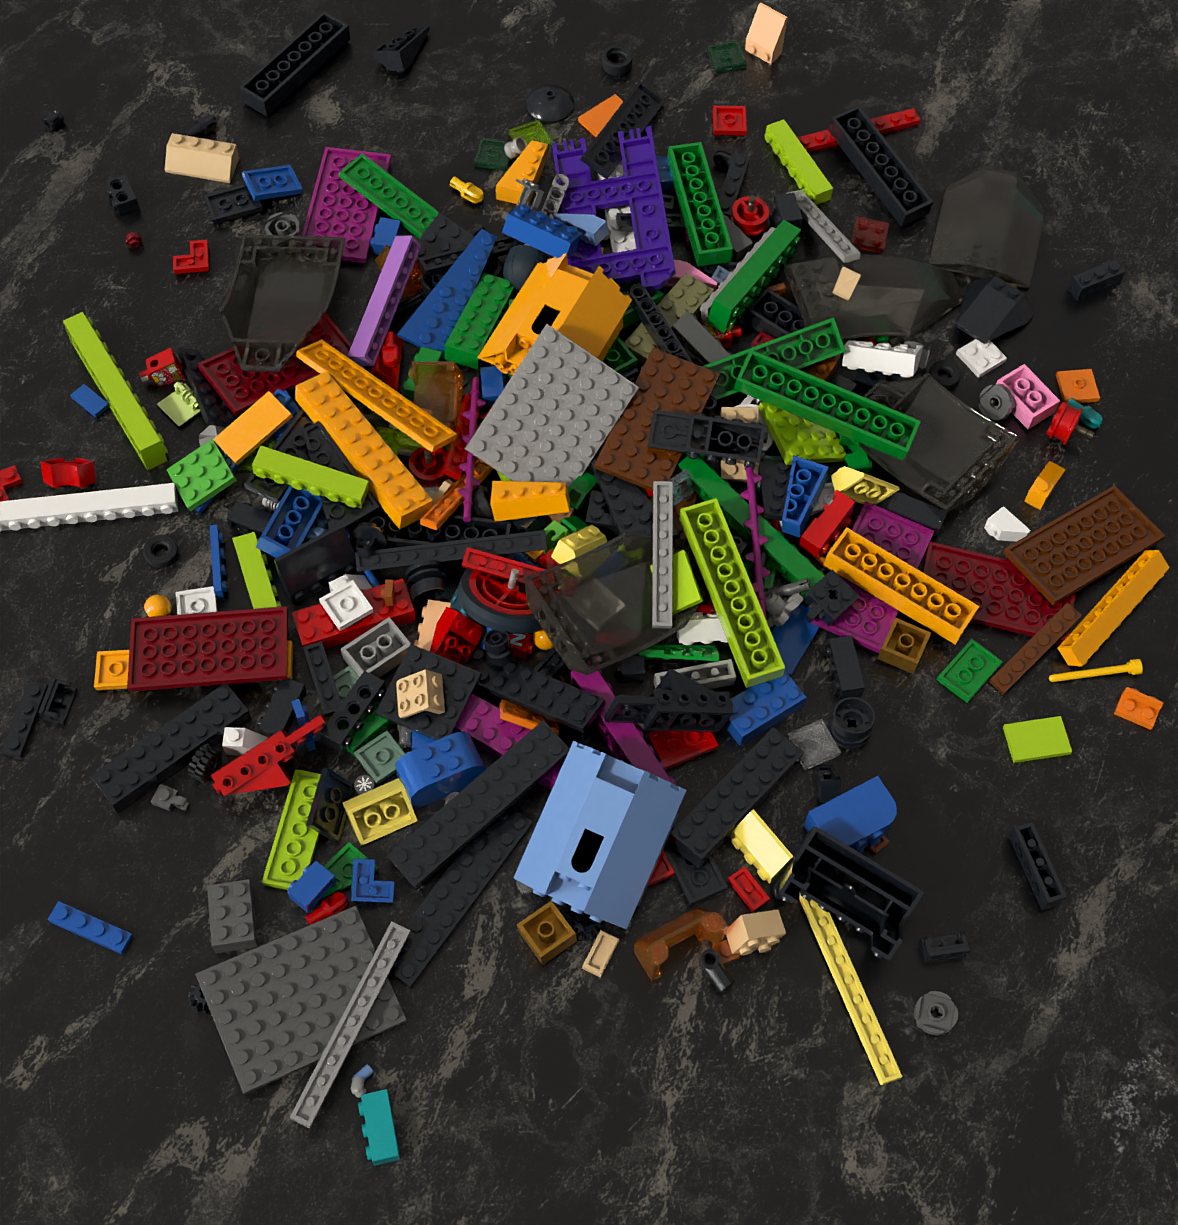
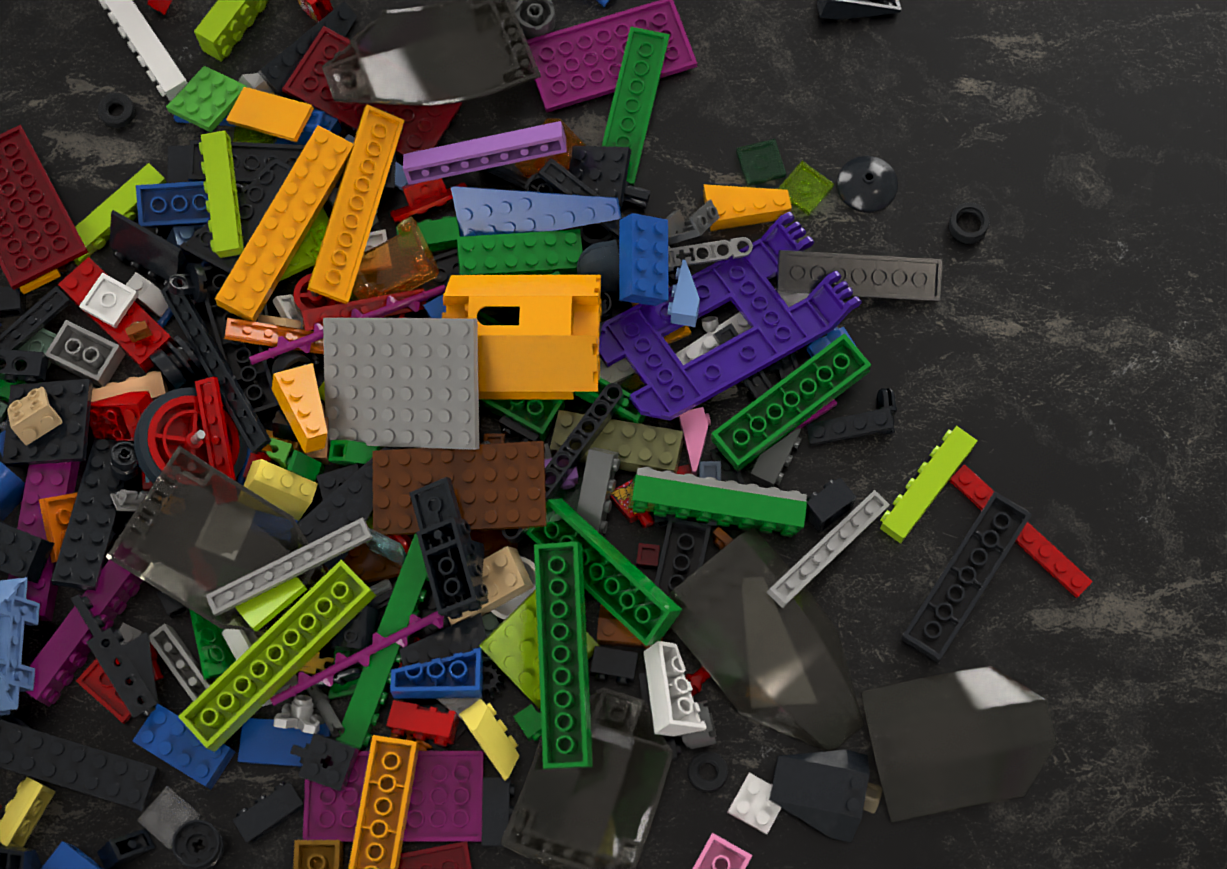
camera: 70 degrees right, 10 degrees up
(157, 606) = (50, 140): light orange piece -> none
(180, 405) = (283, 35): yellowish green hinge -> none
(196, 601) = (69, 173): white plate -> none
(218, 568) = (123, 164): blue plate -> none
(385, 234) = (586, 114): blue brick -> none
(390, 351) = (434, 191): red arm -> none
(468, 190) = (692, 161): yellow arm -> none
(515, 147) = (778, 181): light grey wheel -> none
(534, 657) = (127, 500): none -> light grey hinge
(597, 117) = (877, 242): orange tile -> none
(726, 56) = (1050, 337): clear green tile -> none
(729, 120) = (949, 382): red plate -> none
(750, 215) = (814, 464): red wheel -> none
(766, 34) = (1092, 365): light nougat slope -> none
(846, 283) = (741, 606): tan slope -> none
(869, 234) = (869, 608): clear red plate -> none
(1005, 399) = (688, 844): dark grey plate -> none

